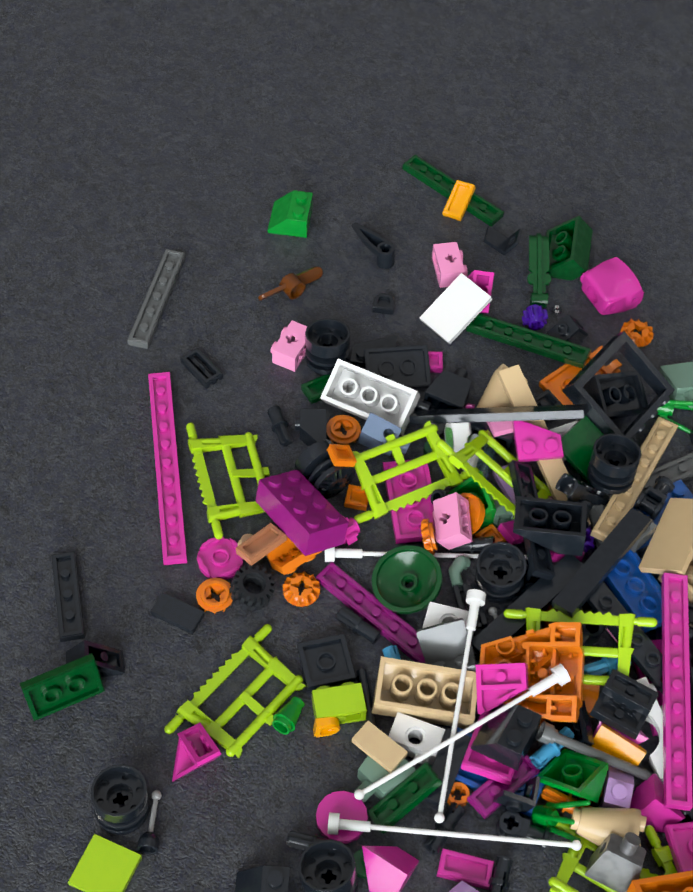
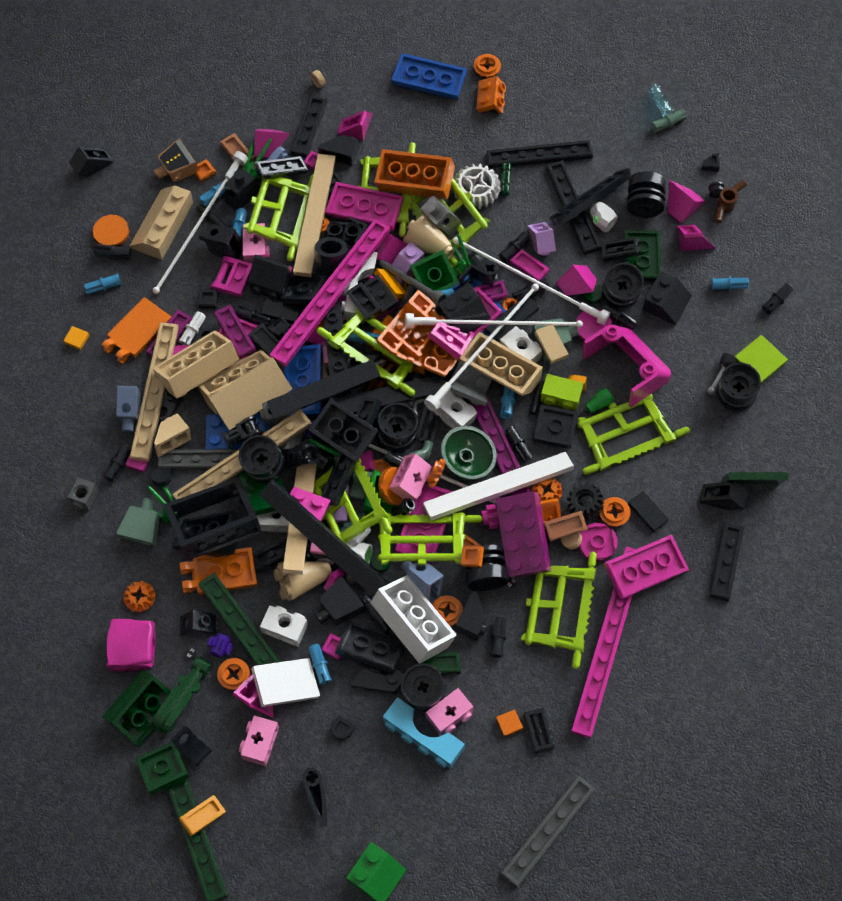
camera: 150 degrees left, 10 degrees up
(155, 544) = (646, 567): none -> dark pink tile
(193, 751) = (675, 399): dark pink slope -> none
(232, 362) = (509, 723): none -> orange tile
(265, 793) = (651, 369): none -> dark pink windscreen
(280, 314) = (443, 748): none -> medium azure arch
(293, 284) = (419, 781): reddish brown piece -> none
(352, 562) = (498, 486): none -> white tile
(405, 796) = (548, 310): dark green tile -> none
(435, 339) = (319, 664): none -> dark azure axle
(488, 354) = (292, 634): none -> white brick
(501, 300) = (234, 665): none -> orange gear
(515, 215) = (162, 768): none -> dark green plate

